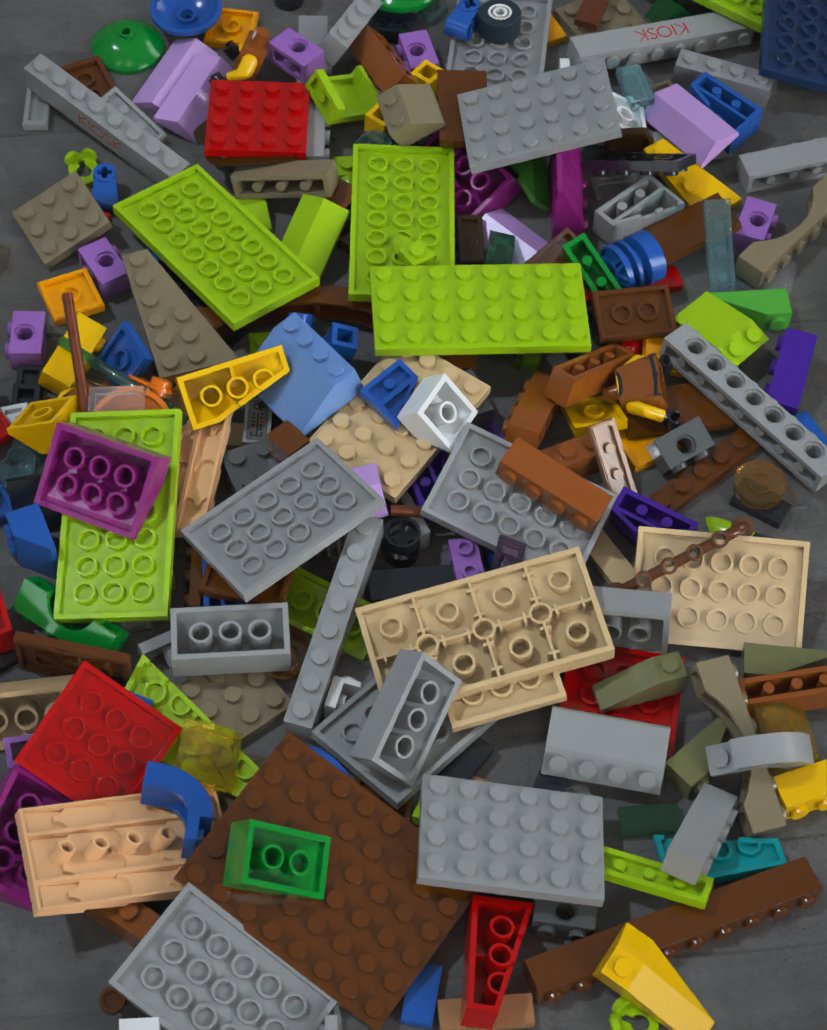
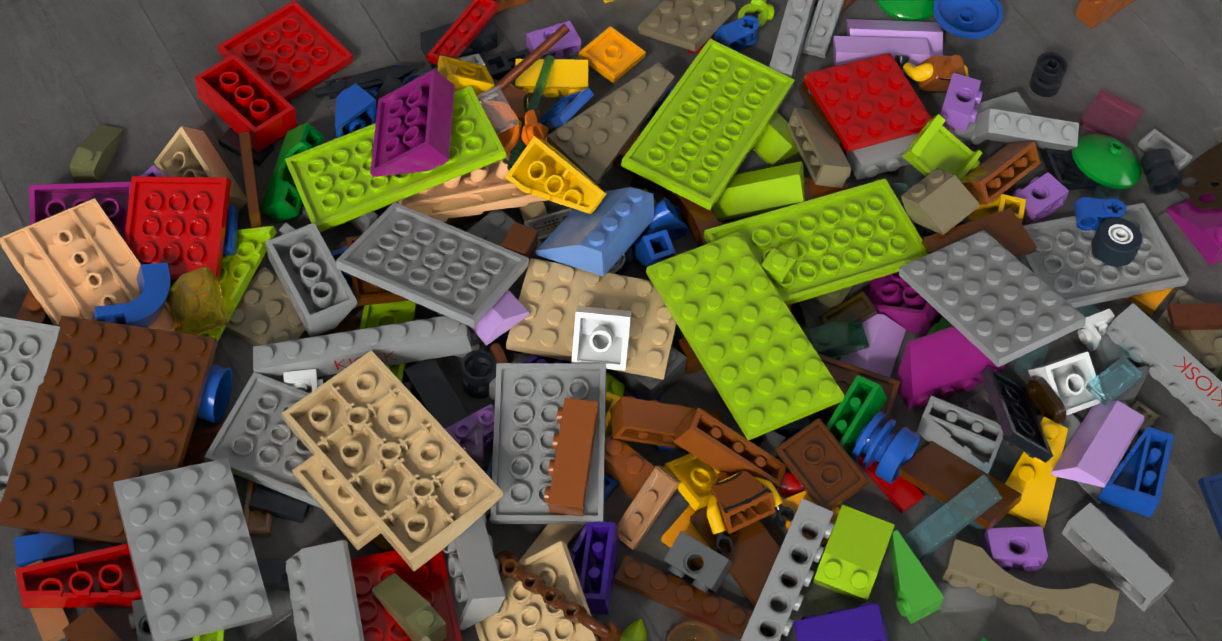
camera: 65 degrees right, 0 degrees up
(104, 267) = (656, 52): medium lavender brick -> none
(233, 26) = (980, 56): light orange tile -> none
(276, 860) = (93, 376): green slope -> none
(390, 391) = (609, 292): blue wing -> none
(406, 717) = (276, 425): light grey slope -> none
(736, 76) = (1187, 459): light grey brick -> none

